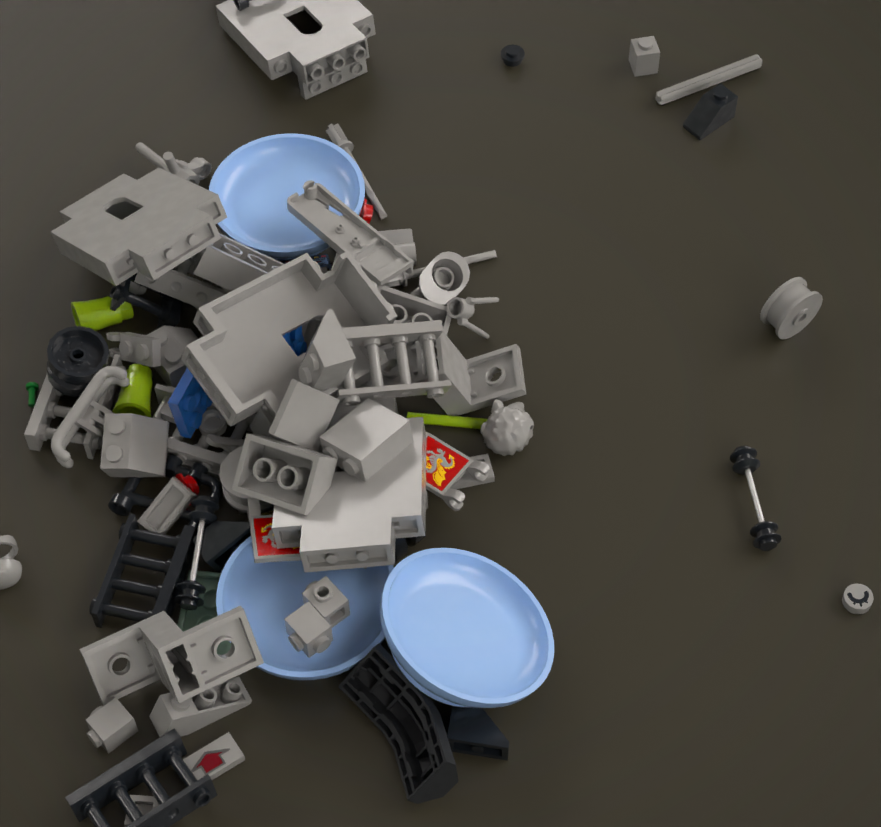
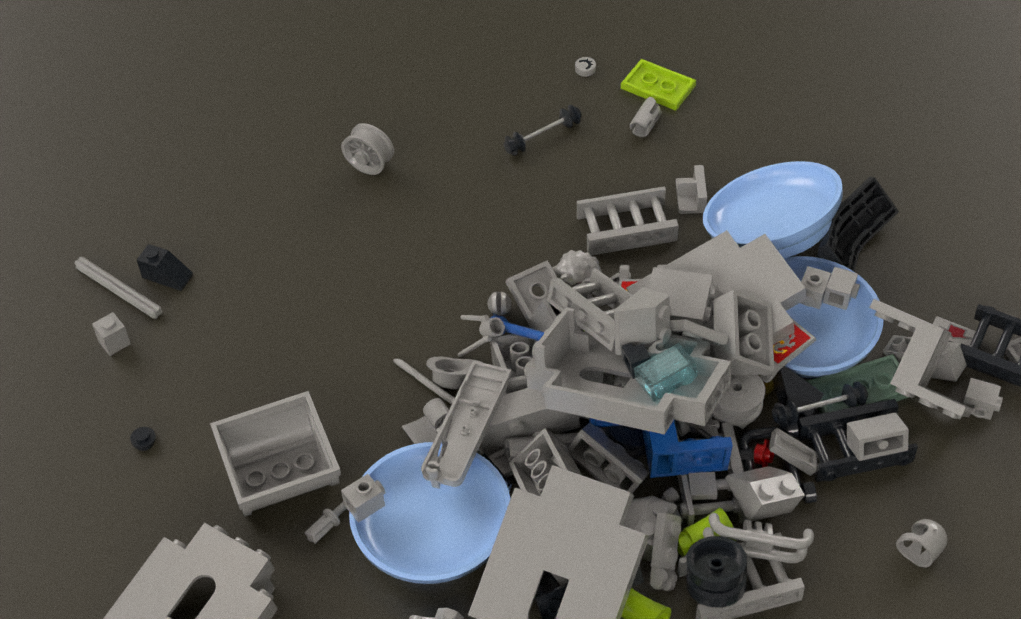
camera: 115 degrees left, 5 degrees down
(121, 573) = (877, 436): none -> light grey brick
(257, 350) = (666, 372): none -> clear light blue brick
(291, 342) = (638, 354): none -> black piece
(320, 146) = (363, 497): none -> light grey brick
(412, 113) = (275, 452): none -> light grey container
(481, 340) = (520, 330): none -> blue piece
(497, 335) = (499, 303): none -> light grey arm
(540, 498) = (628, 237): none -> light grey fence
(575, 607) = (692, 192): none -> light grey panel
(723, 615) = (646, 117): none -> light grey arm
(786, 667) = (658, 82): none -> lime tile

